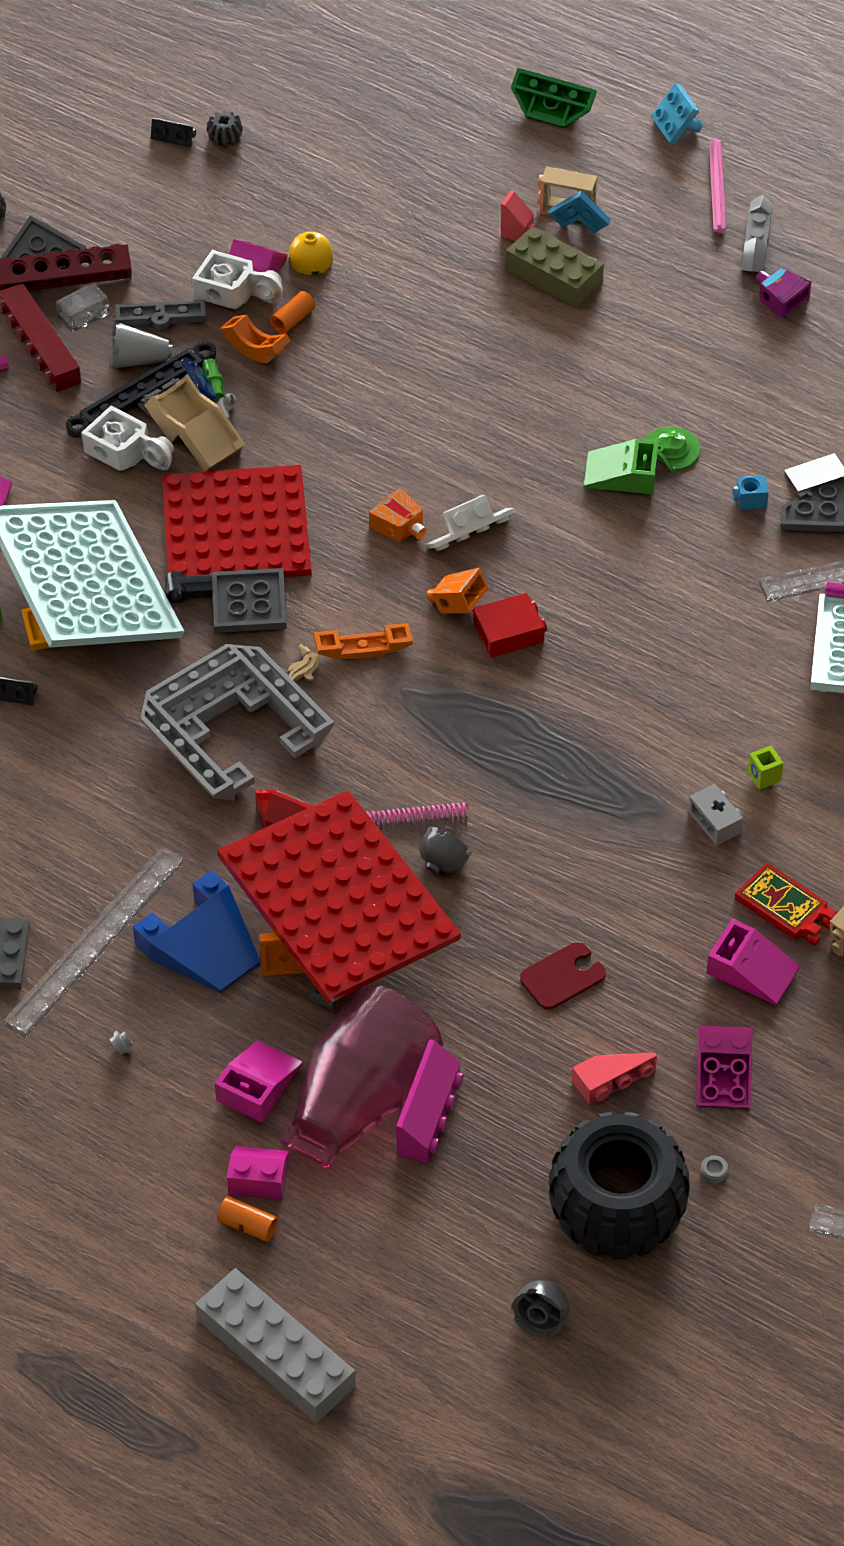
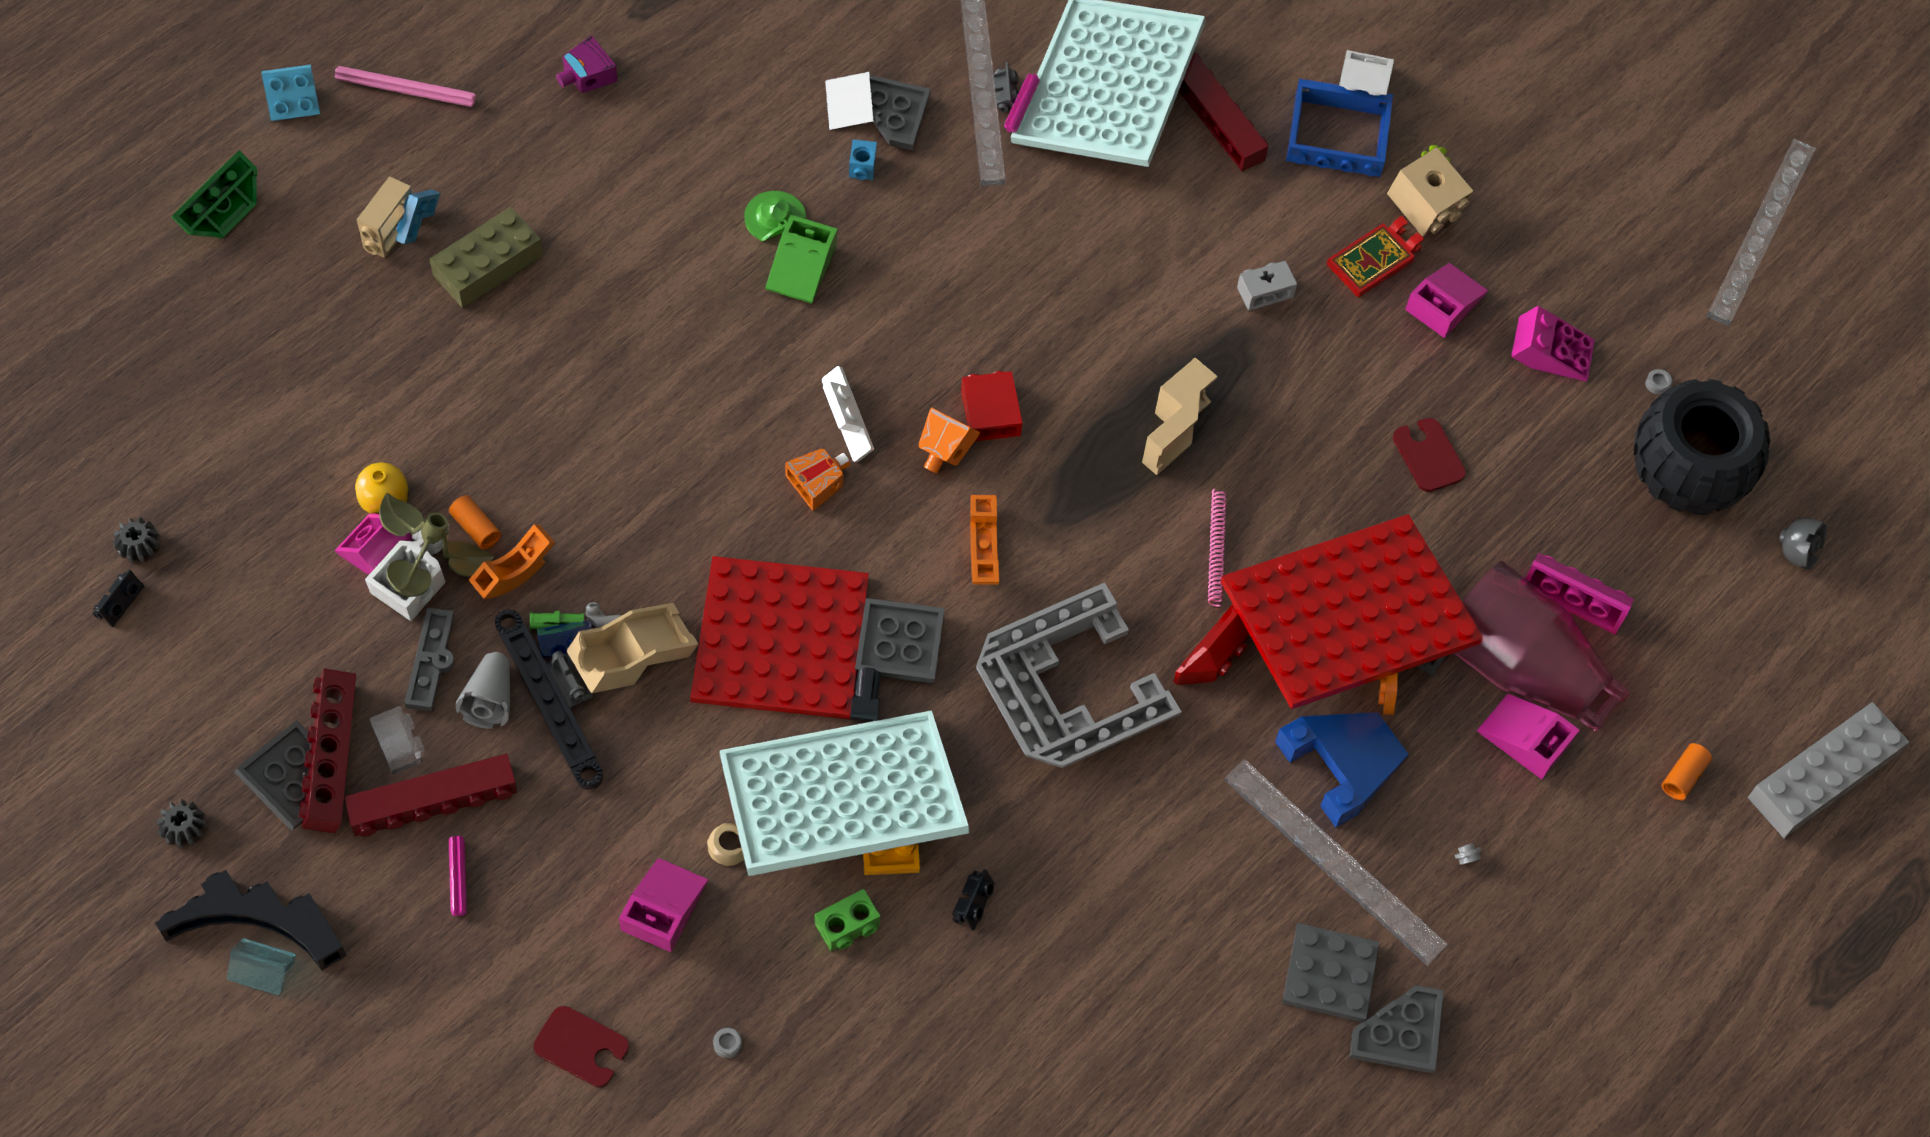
camera: 85 degrees left, 10 degrees up
(124, 441) = (634, 726): white brick -> none
(257, 1172) = (1630, 752): dark pink slope -> none
(266, 254) = (408, 579): none -> olive plant
(305, 667) = (1001, 605): tan piece -> none
(442, 852) = (1281, 521): dark grey cylinder -> none
(515, 217) = (405, 276): coral slope -> none
(548, 759) = (1178, 406): none -> tan piece
(608, 1073) = (1555, 441): coral slope -> none
(757, 235) = (494, 69): light grey brick -> none
(765, 767) = (1223, 230): lime brick -> none

